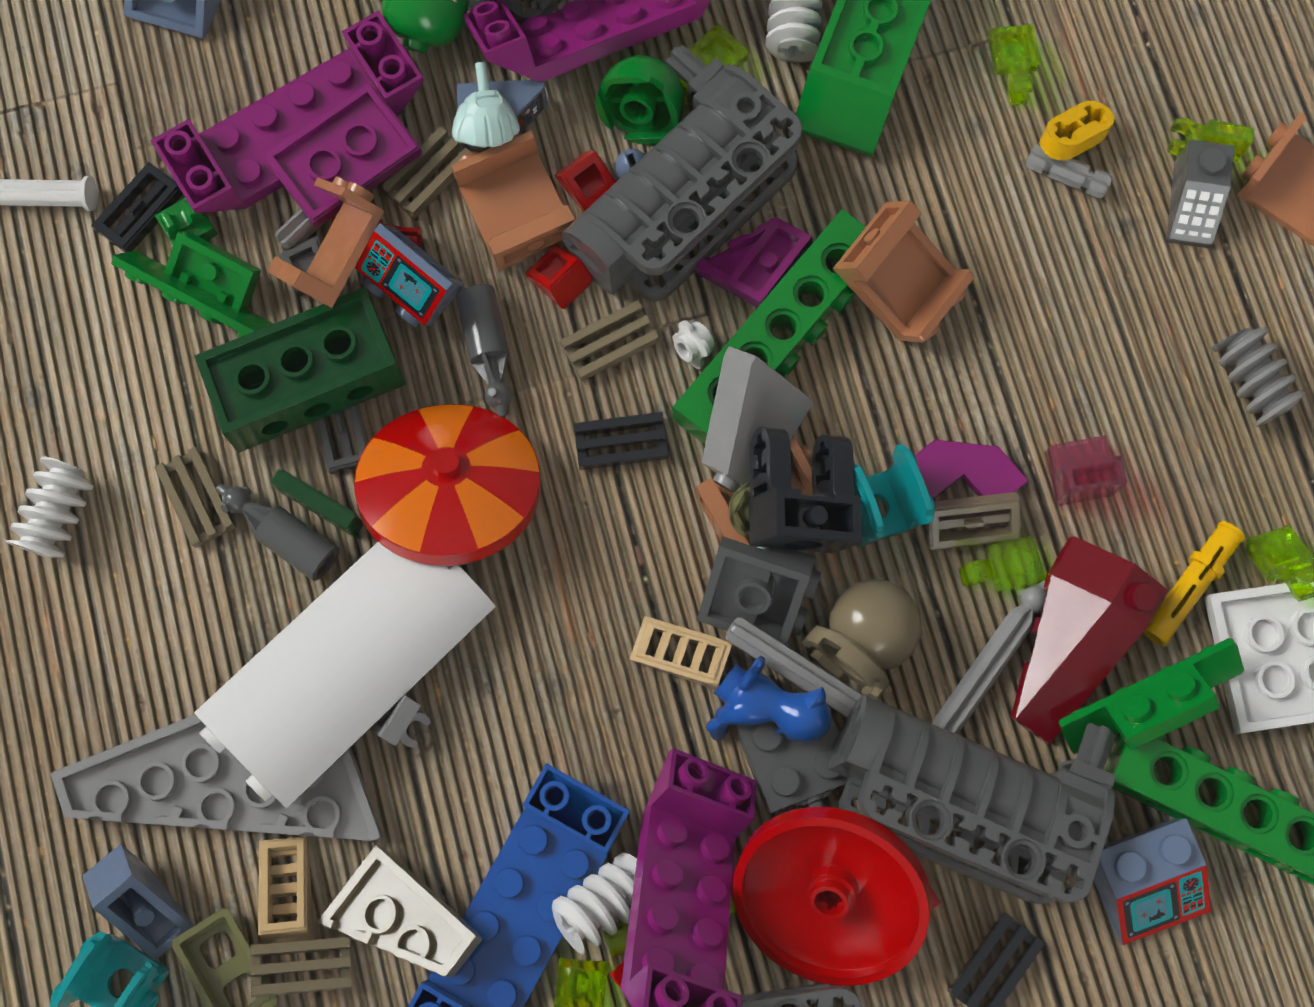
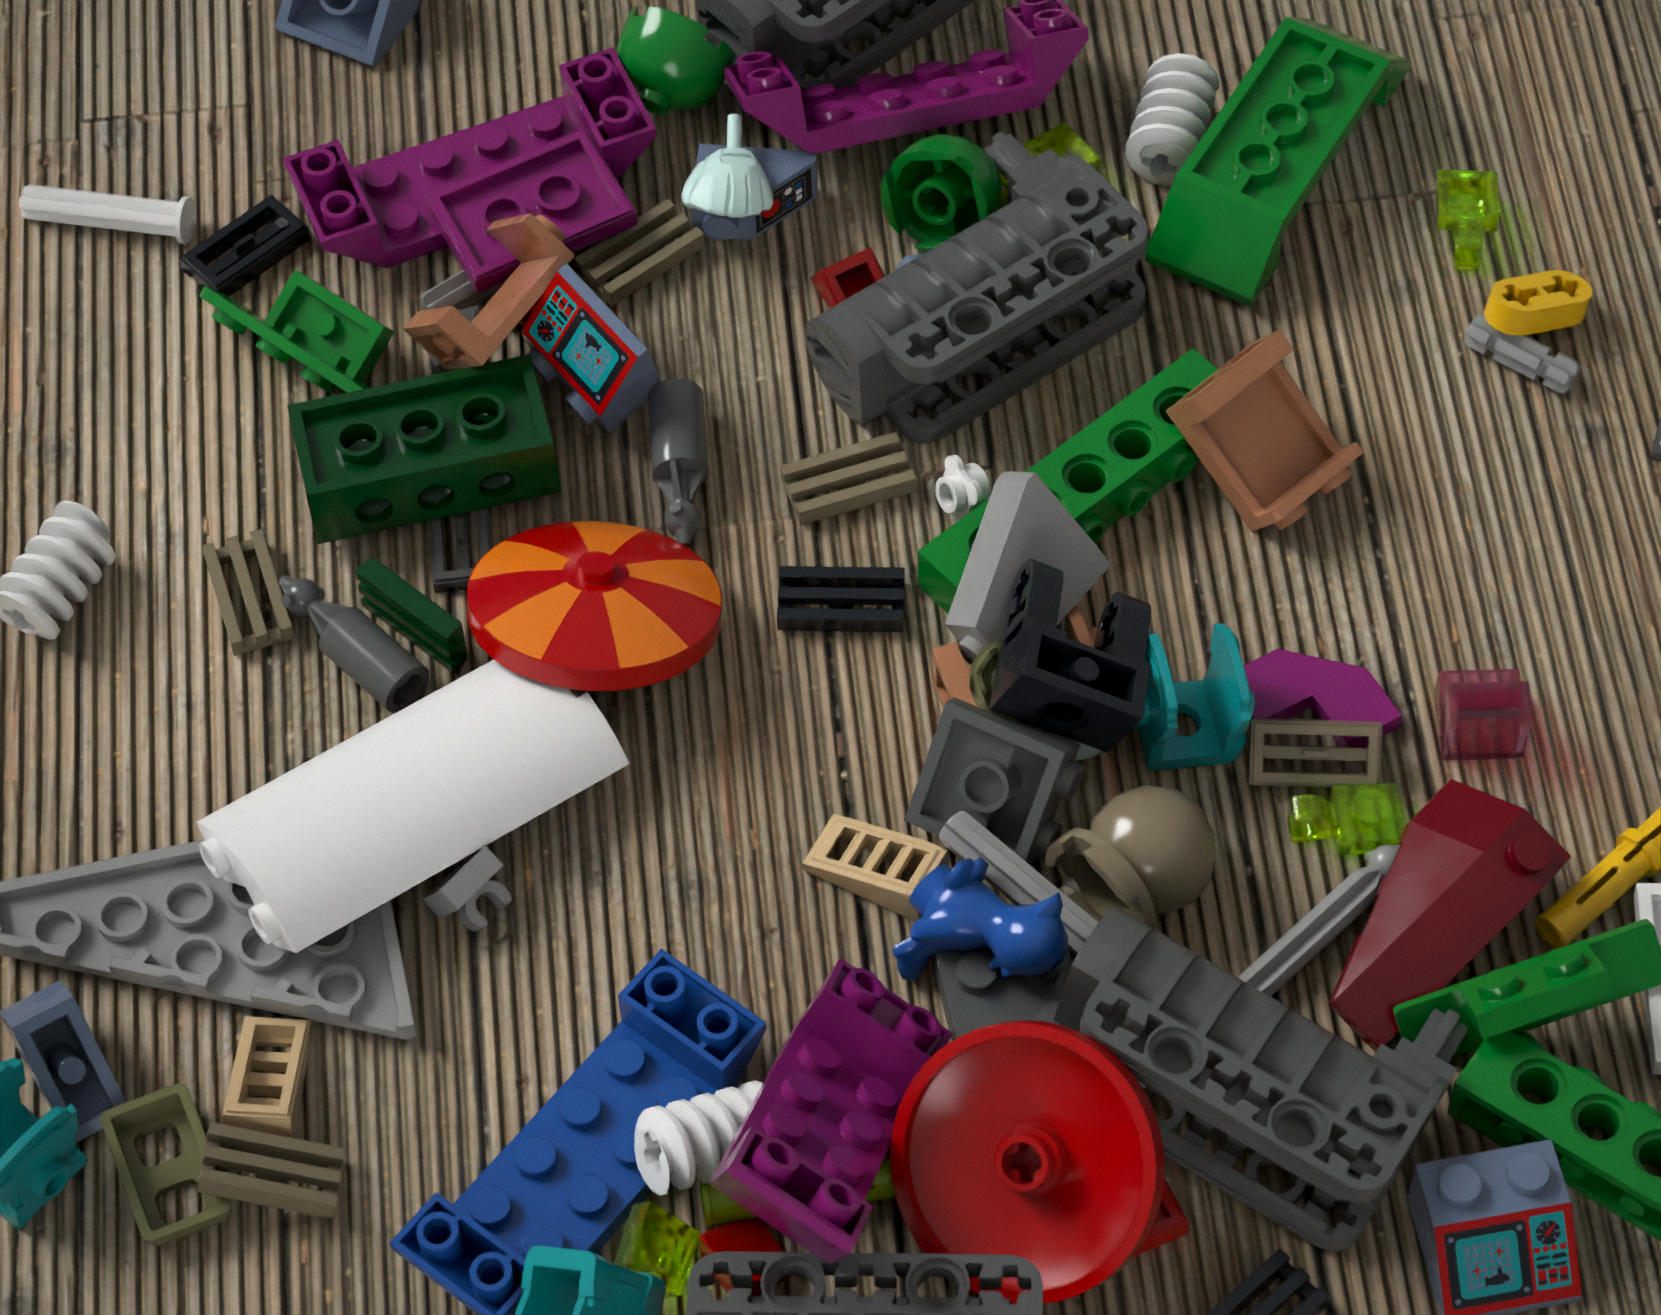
camera: 10 degrees right, 20 degrees down
(182, 218) = (308, 259): green tile -> none
(401, 915) = (421, 1123): wing -> none
(512, 200) = (745, 293): nougat panel -> none
(560, 276) = (796, 395): red slope -> none
(756, 260) = (1062, 402): magenta wing -> none

